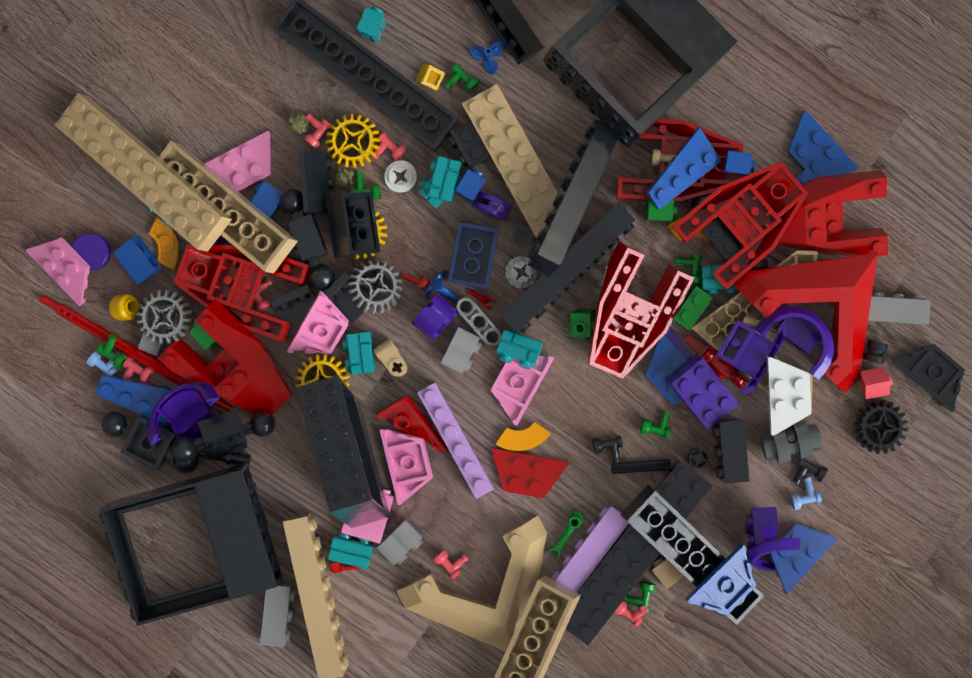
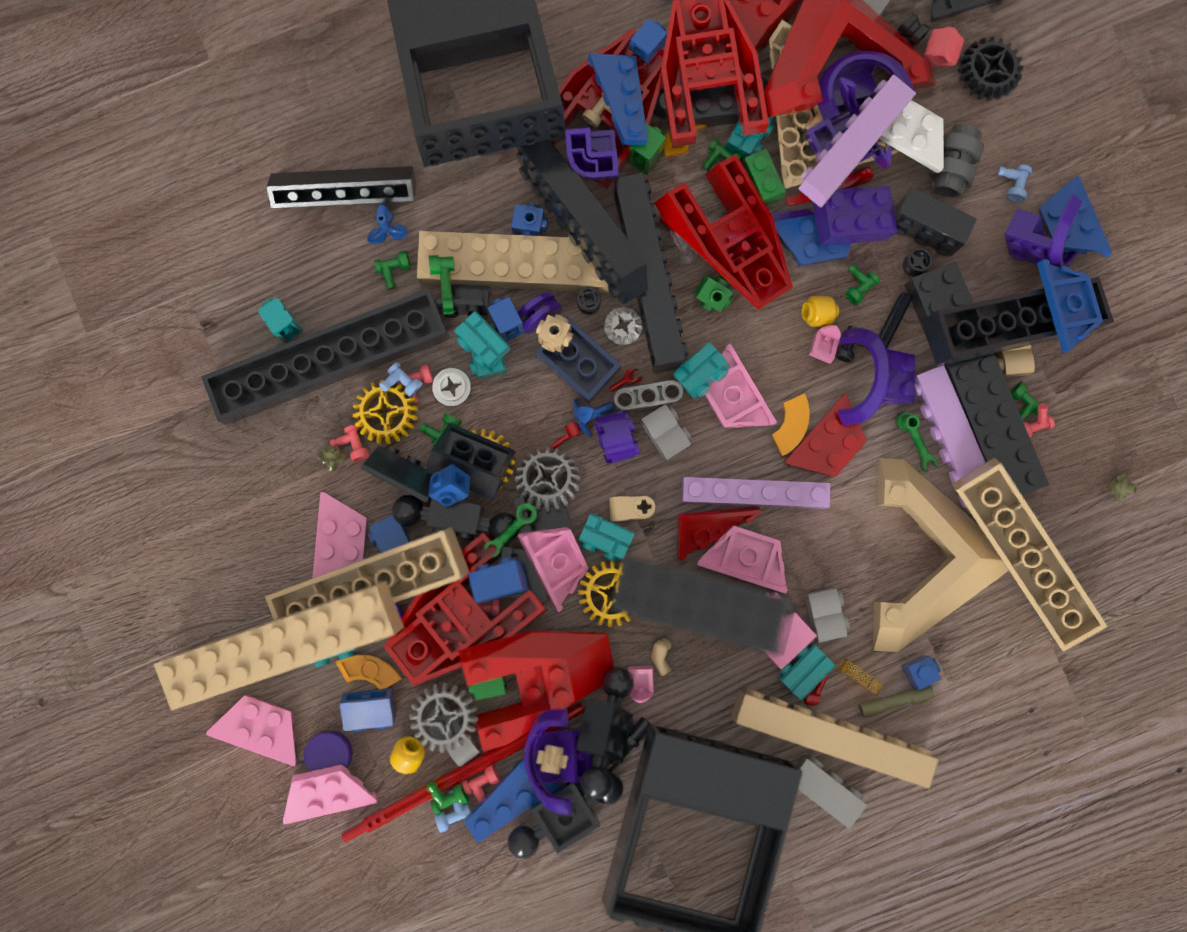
camera: 60 degrees left, 5 degrees down
(79, 192) = (259, 728): none -> bright pink wing
(181, 409) = (552, 759): none -> tan gear
(274, 441) = (643, 683): none -> bright pink plate
(279, 297) = (498, 581): none -> blue brick
(298, 441) = (658, 655): none -> tan arm
(323, 222) = (449, 486): none -> blue brick
(332, 286) = (500, 541): none -> green brick
(343, 177) = (416, 444): olive plant -> none
(371, 592) = (860, 677): none -> clear yellow beam
(379, 636) = (882, 704): none -> olive piece
(384, 133) = (398, 374): none -> light blue piece
(401, 633) = (922, 671): none -> blue brick
(430, 77) = (370, 297): yellow slope -> none
(452, 569) = (885, 577): coral piece -> none
(478, 237) = (554, 342): none -> tan brick
(479, 118) = (443, 266): none -> green brick
(551, 150) = (528, 220): none -> blue brick
(596, 426) = (825, 343): none -> bright pink plate
(598, 487) = (892, 381): none -> dark purple piece
(618, 408) = (820, 311): none -> yellow head
(625, 176) = (592, 153): none -> dark purple brick
(747, 360) = (856, 141): none -> lavender brick
(804, 466) = (1001, 154): black piece -> none

